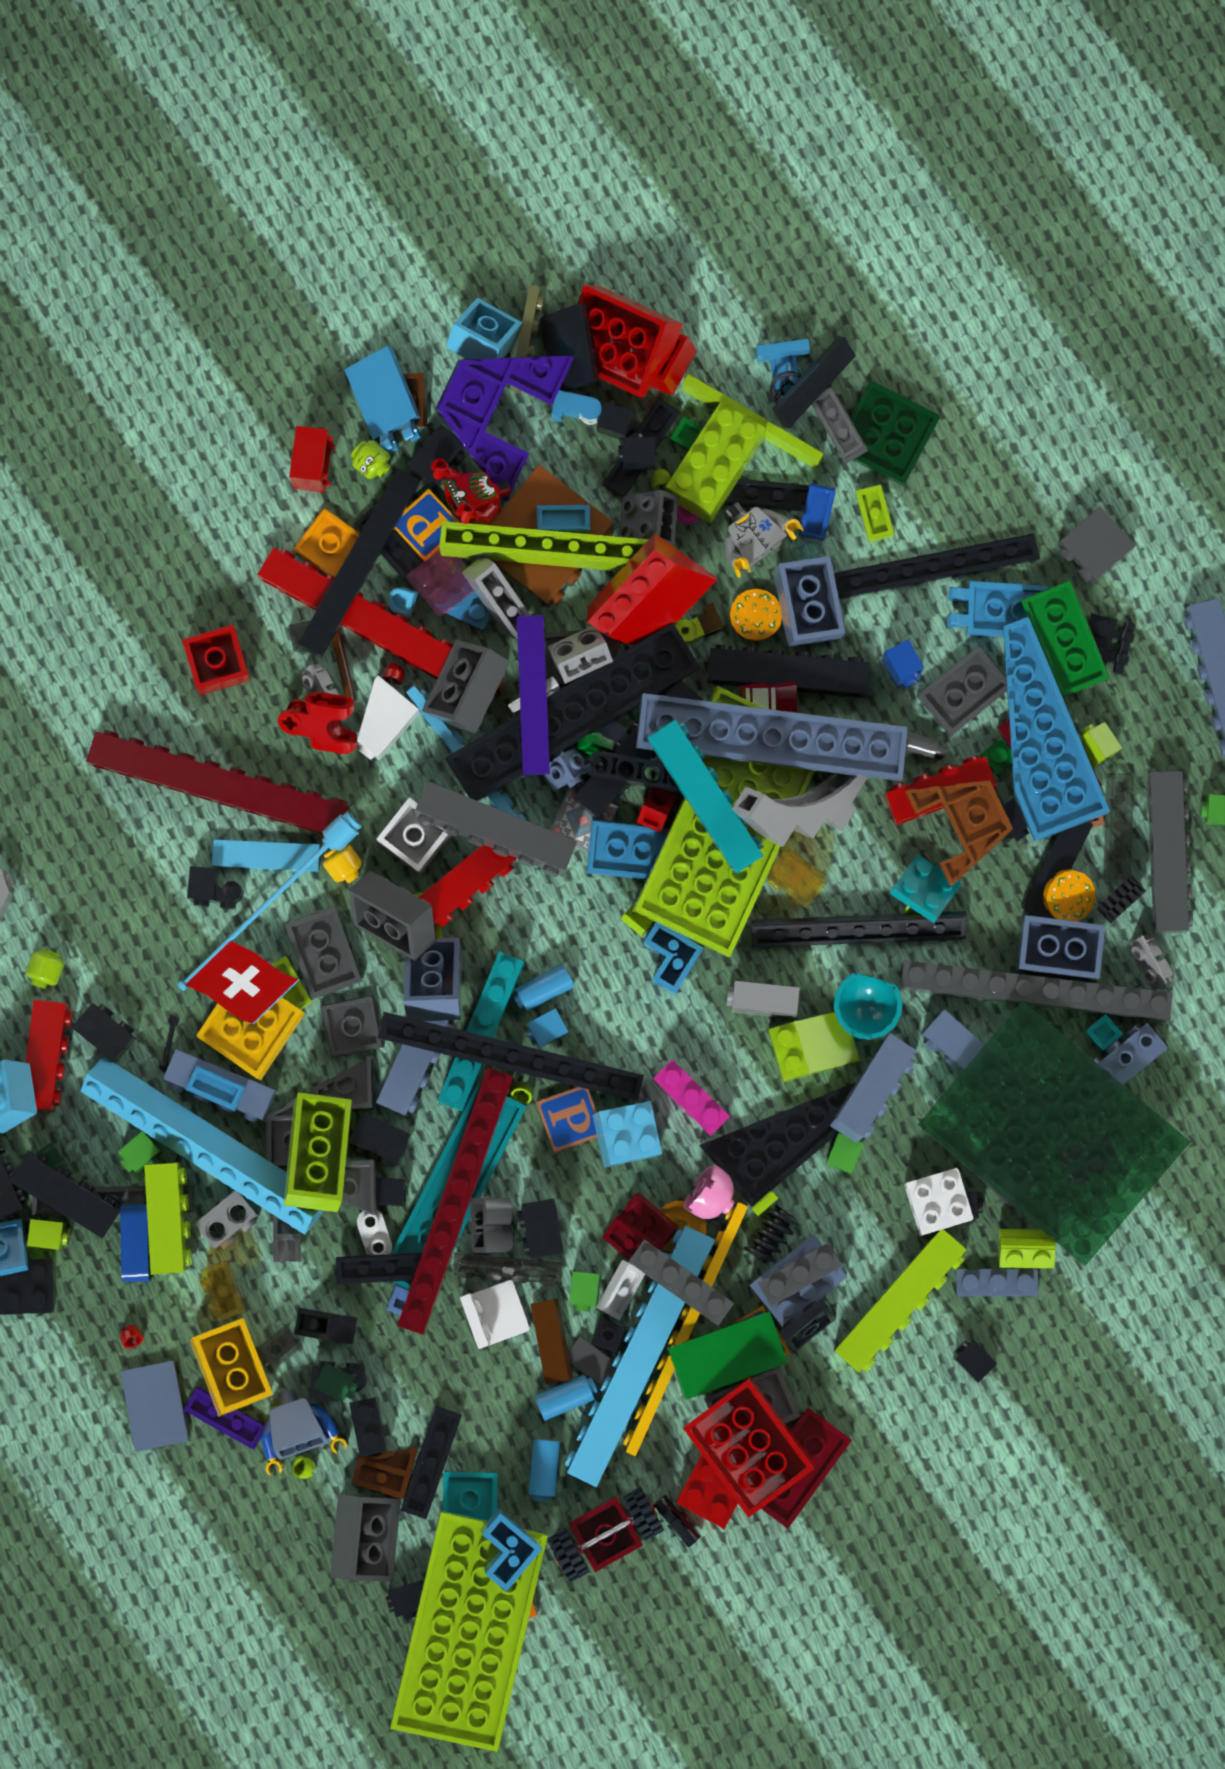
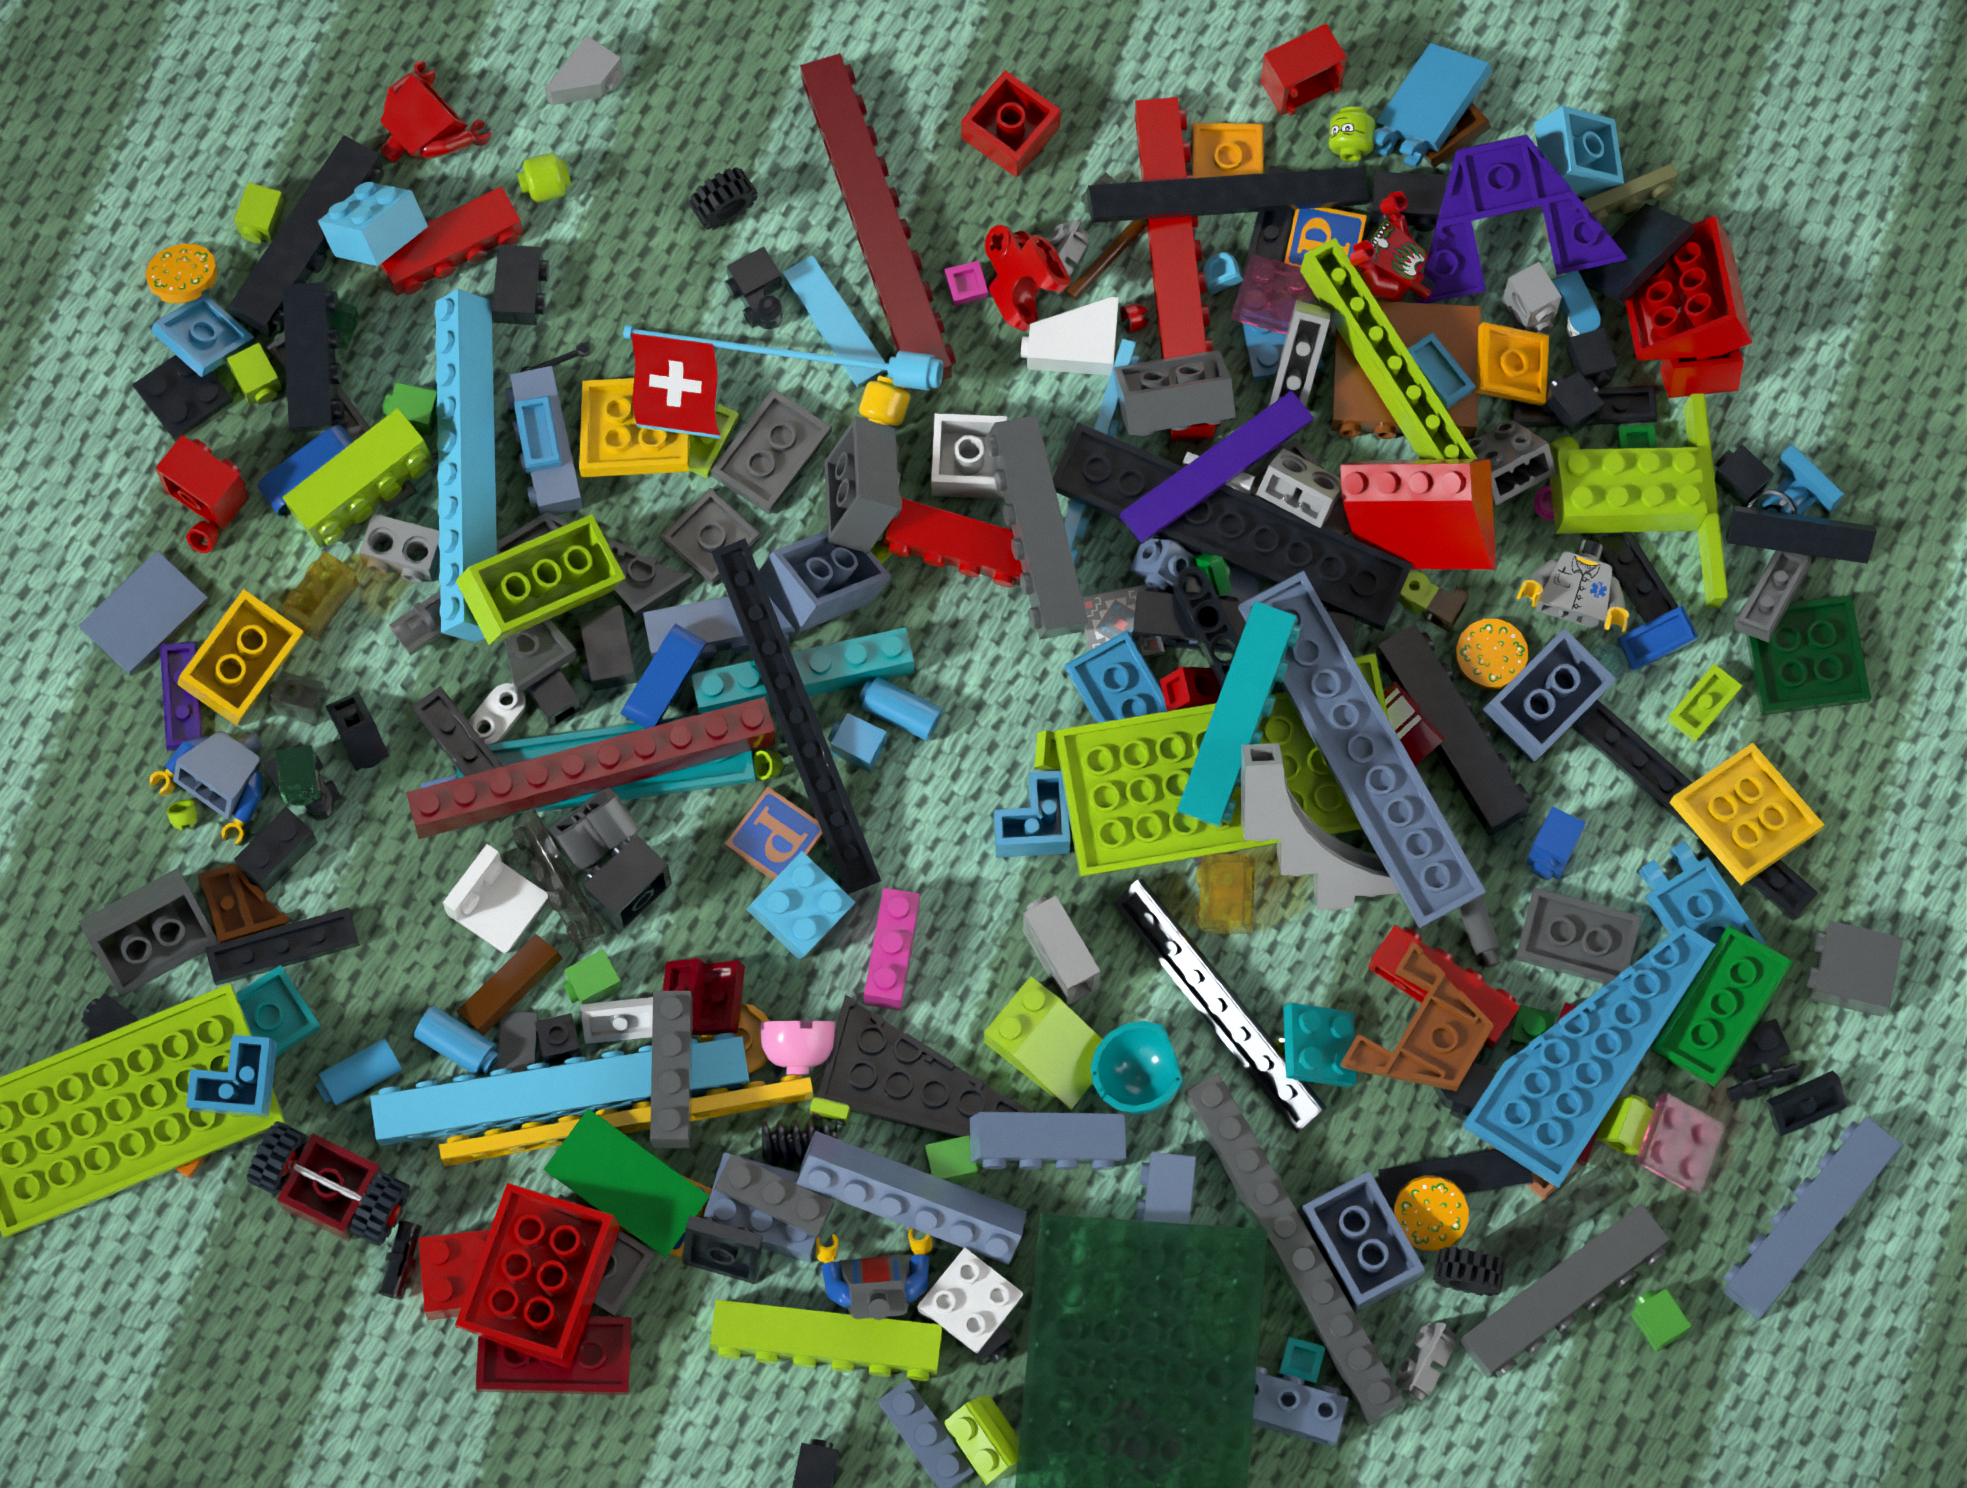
camera: 50 degrees right, 10 degrees down
(99, 1315) = (202, 481): none -> red brick
(139, 869) = (723, 198): none -> black tyre
(299, 759) = (966, 283): none -> dark pink plate
(428, 1119) = (663, 677): none -> blue beam
(558, 431) = (1532, 299): none -> light grey brick
(588, 472) = (1512, 363): none -> light orange tile
(752, 388) = (1742, 475): none -> black brick
(854, 1193) = (912, 1197): none -> sand blue brick
(890, 1250) = (877, 1284): none -> torso
(960, 539) = (1747, 813): none -> yellow plate
(1128, 723) = (1680, 1143): none -> clear pink plate
(1154, 632) = (1806, 1103): none -> black plate

